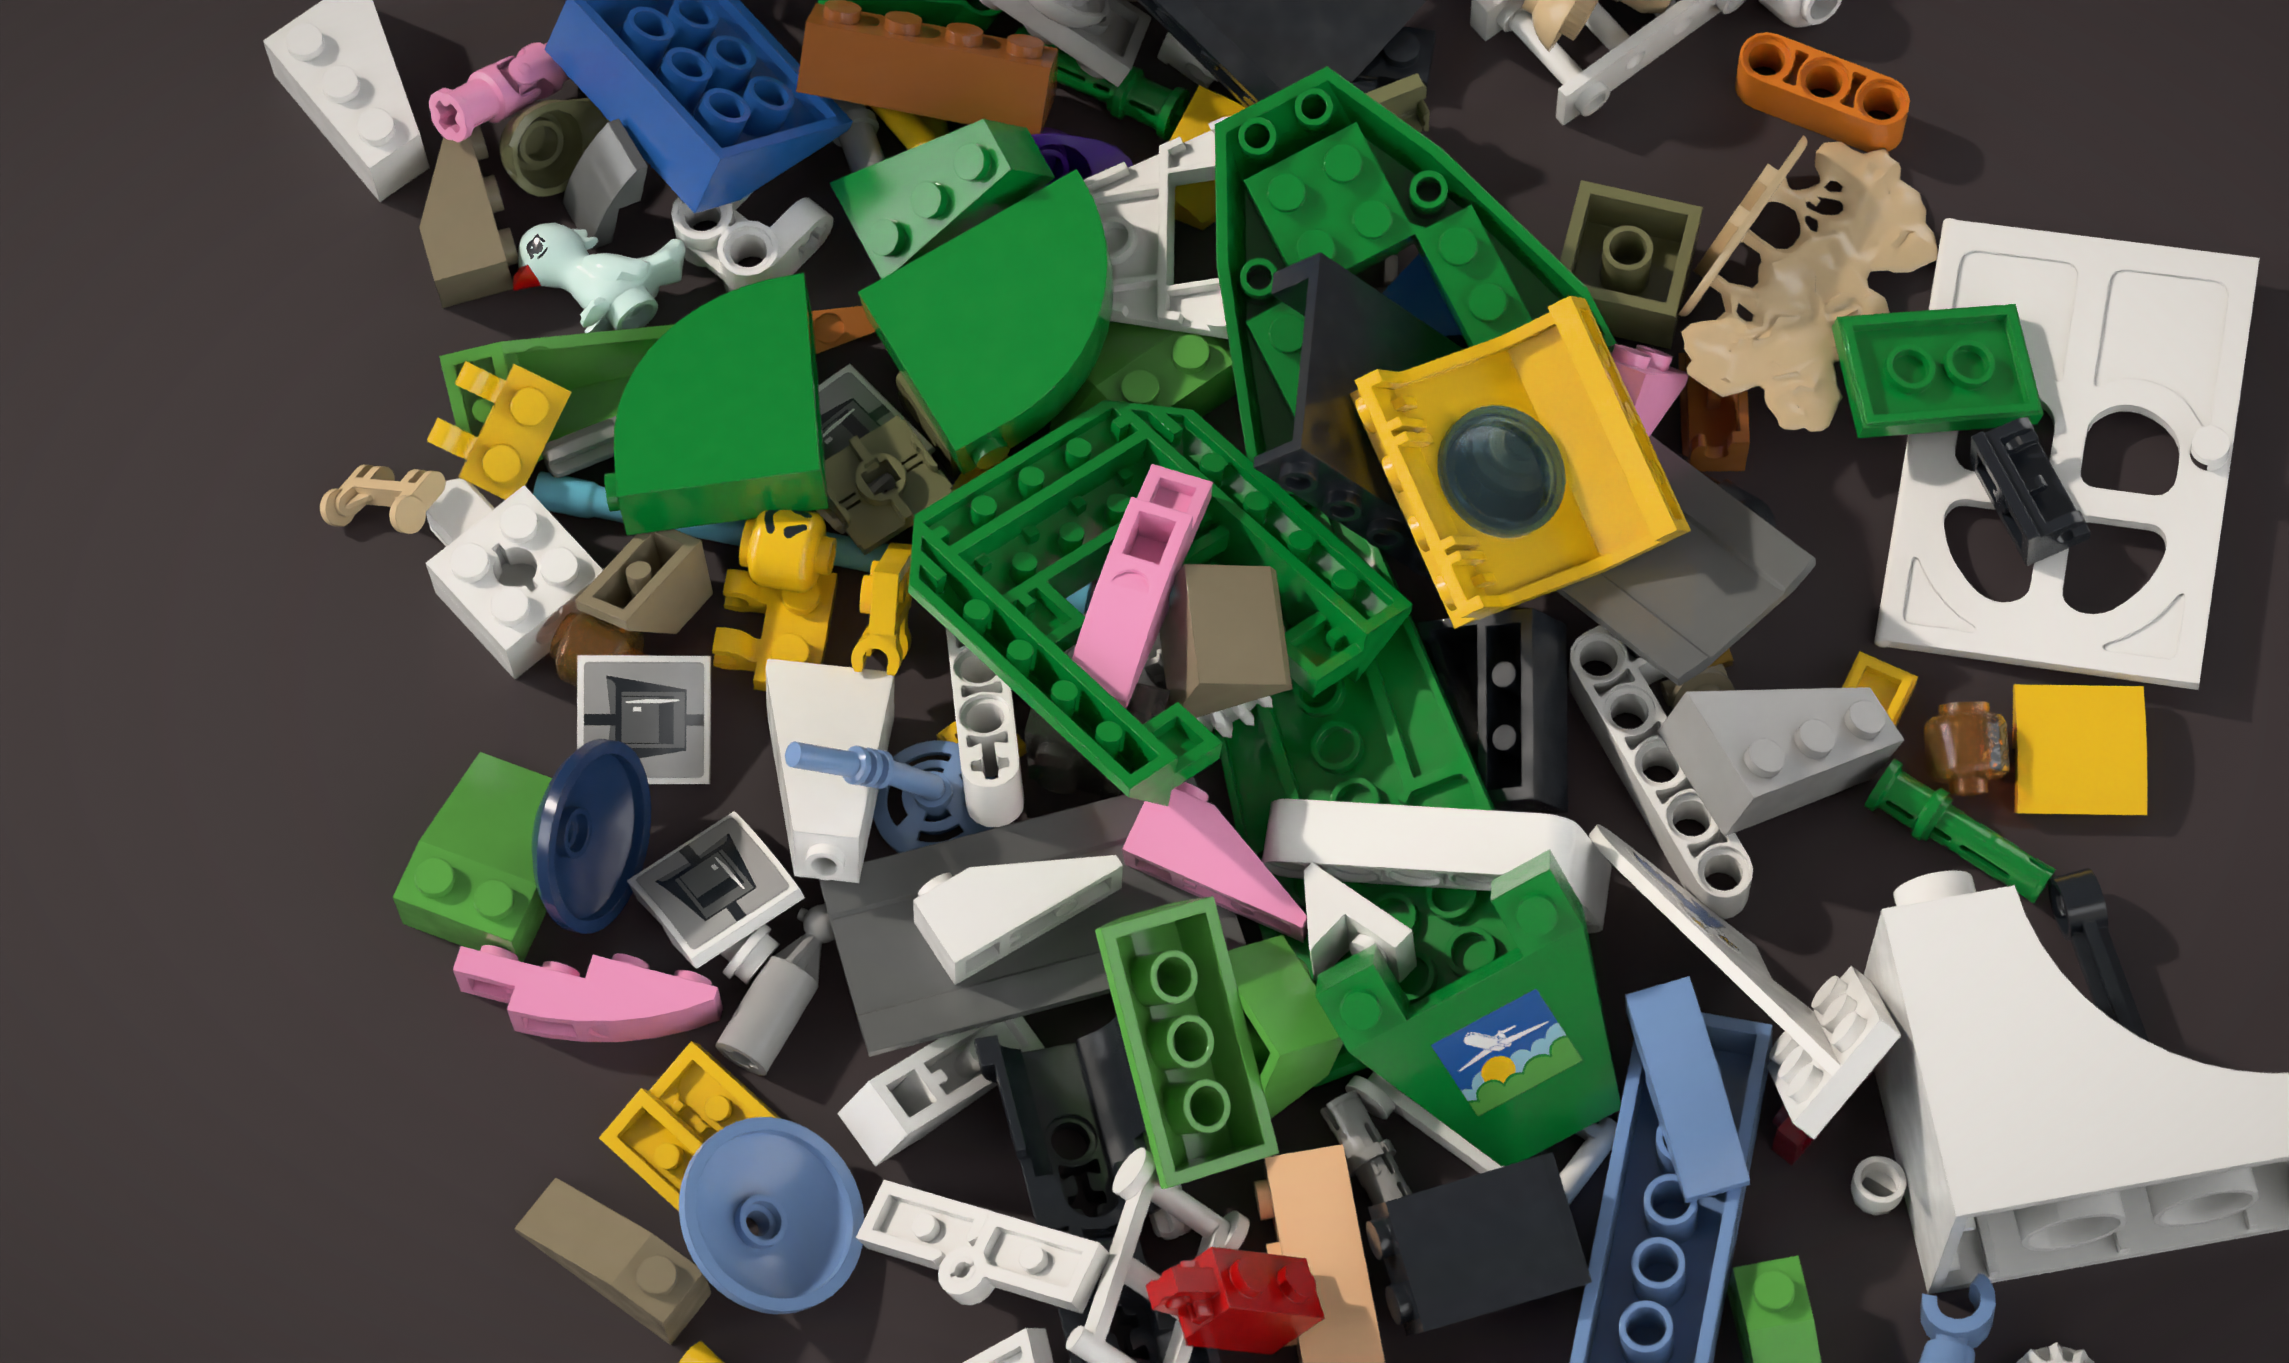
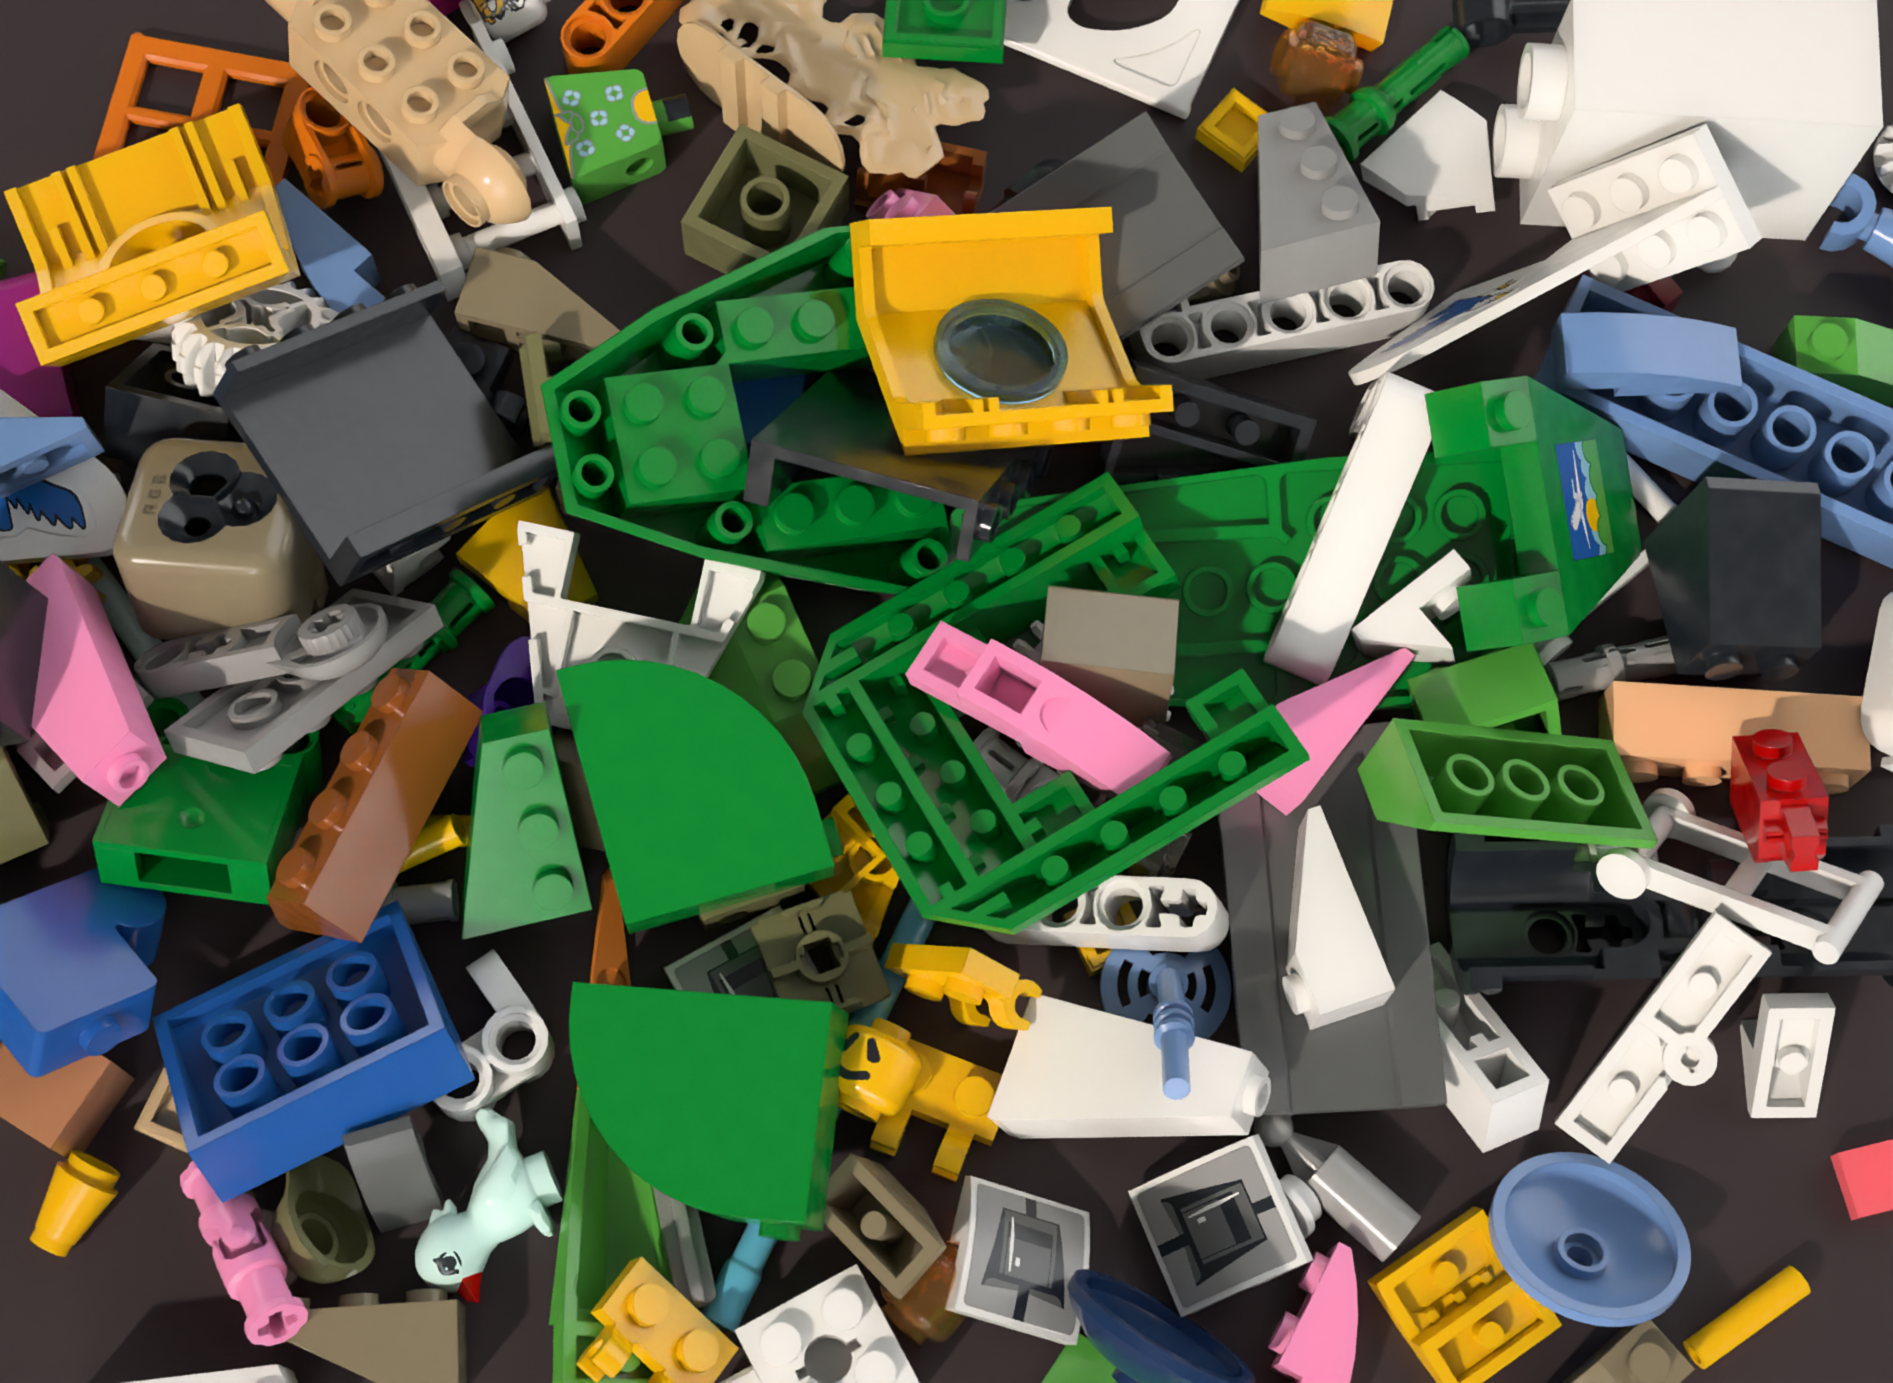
camera: 85 degrees left, 5 degrees up
(1472, 82) = (518, 297): none -> dark tan slope
(1682, 110) = (612, 129): none -> bright green torso
(1871, 872) = (1436, 160): none -> white slope

